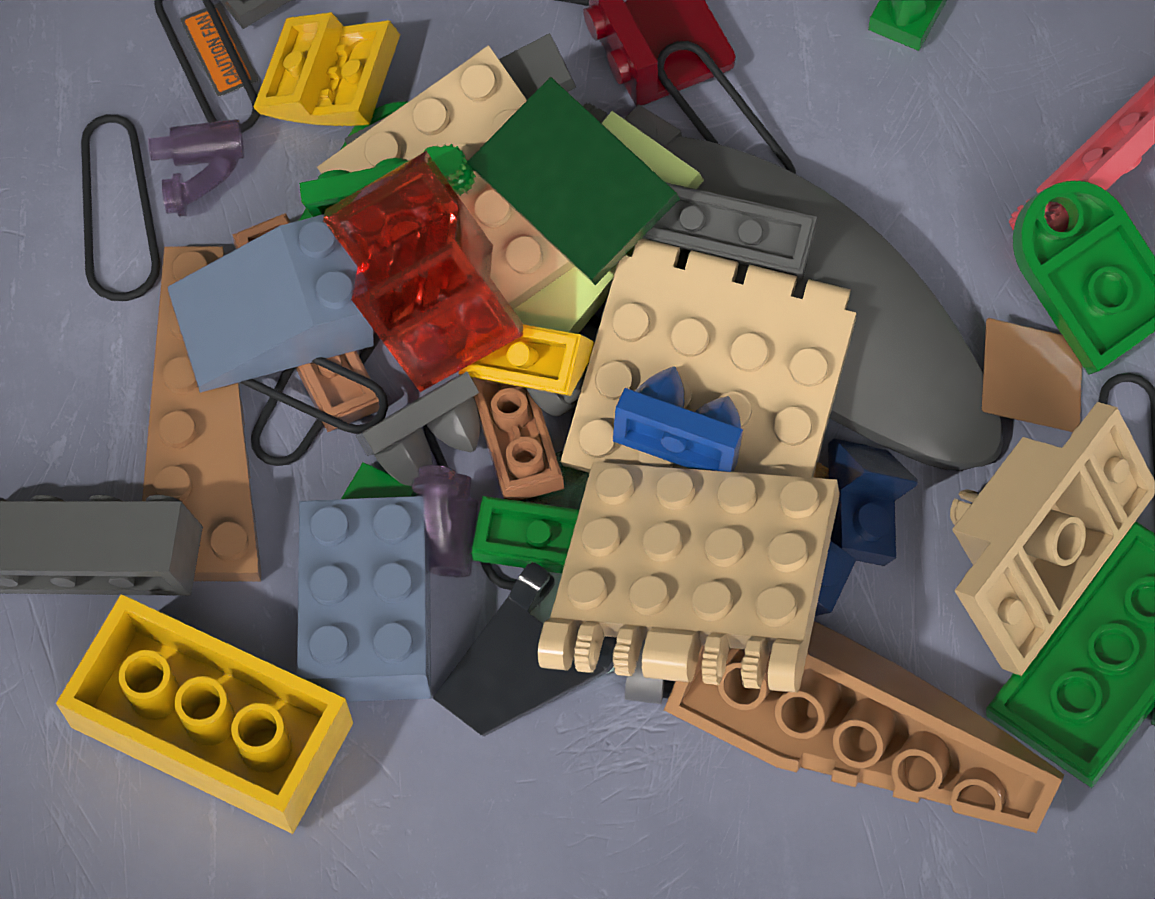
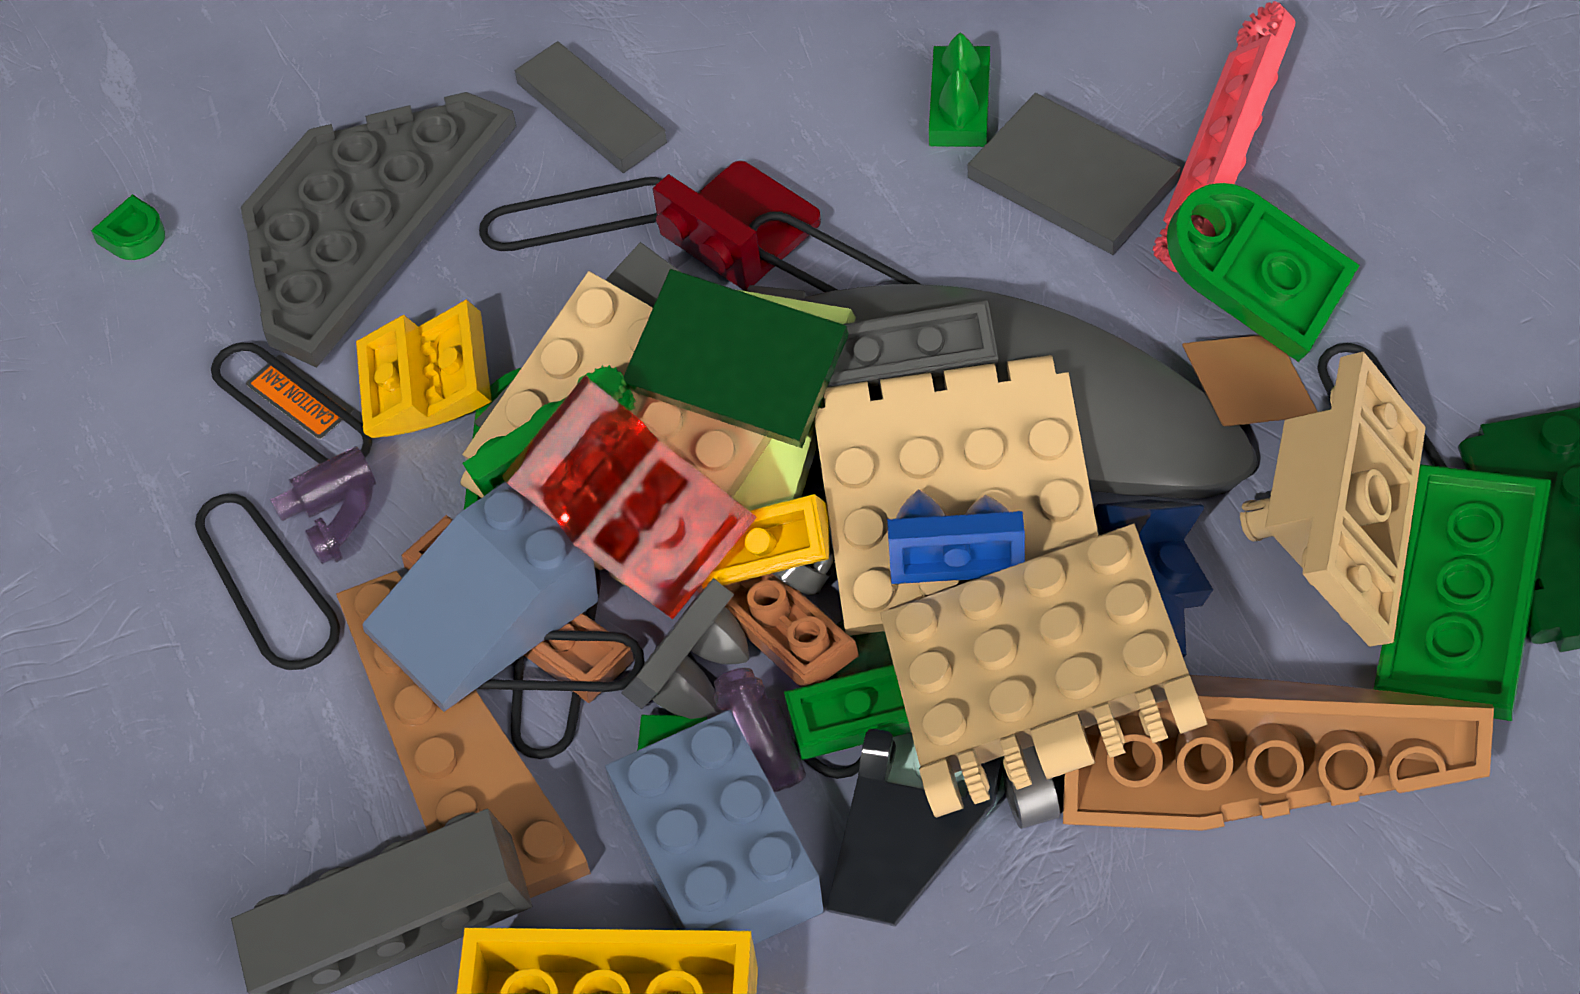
camera: 20 degrees left, 10 degrees down
(981, 110) = (1074, 173): none -> dark grey tile

